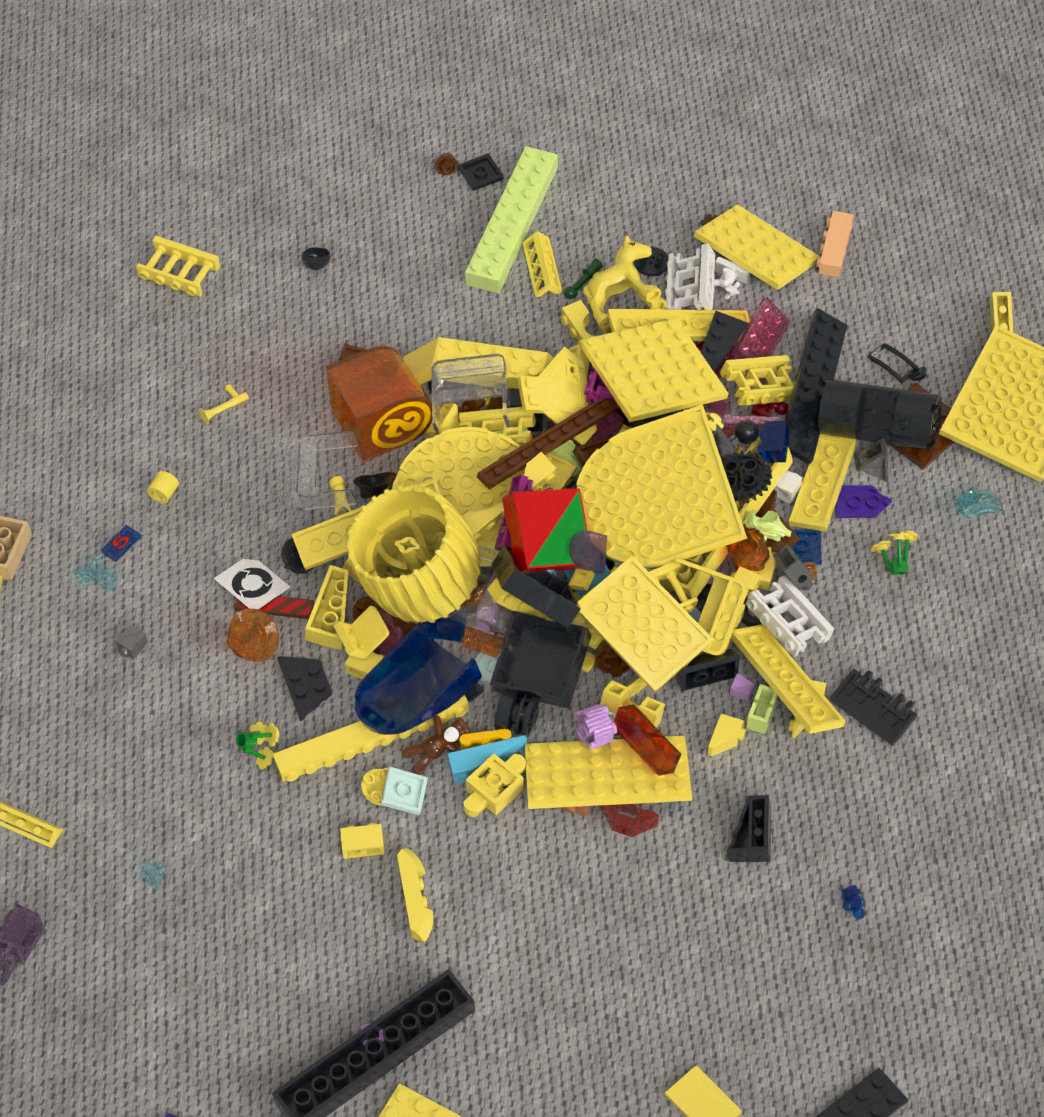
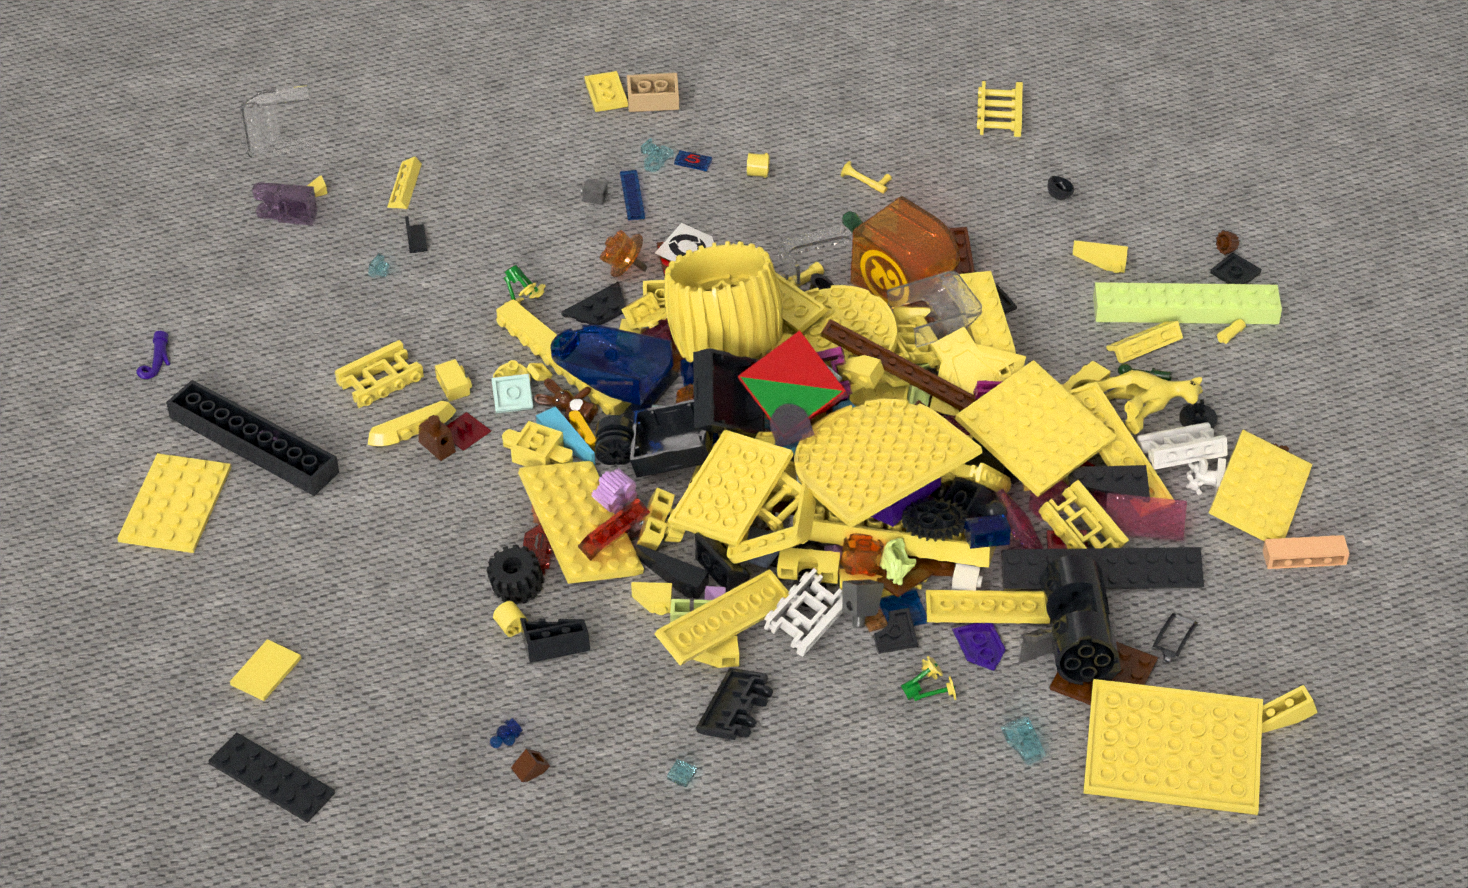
camera: 70 degrees right, 10 degrees down
(119, 829) = (416, 237): none -> black panel
(147, 611) = (632, 195): none -> clear blue tile
(287, 434) = (851, 220): none -> clear green brick
(308, 913) = (374, 364): none -> light yellow fence
(382, 759) = (539, 371): none -> light yellow plate
(423, 256) = (1102, 255): none -> light yellow slope
(434, 848) = (467, 431): none -> dark red piece
(444, 873) = (433, 434): none -> reddish brown torso
(557, 203) = (1230, 332): none -> light yellow piece
(642, 692) = (673, 533): none -> light yellow piece
(664, 831) = (517, 574): none -> black wheel
(704, 707) = (684, 577): none -> black slope
(715, 863) = (508, 618): none -> light yellow piece
(831, 558) = (898, 633): none -> black tile
(898, 890) = (530, 765): none -> reddish brown brick
(941, 769) = (681, 773): none -> clear light blue plate

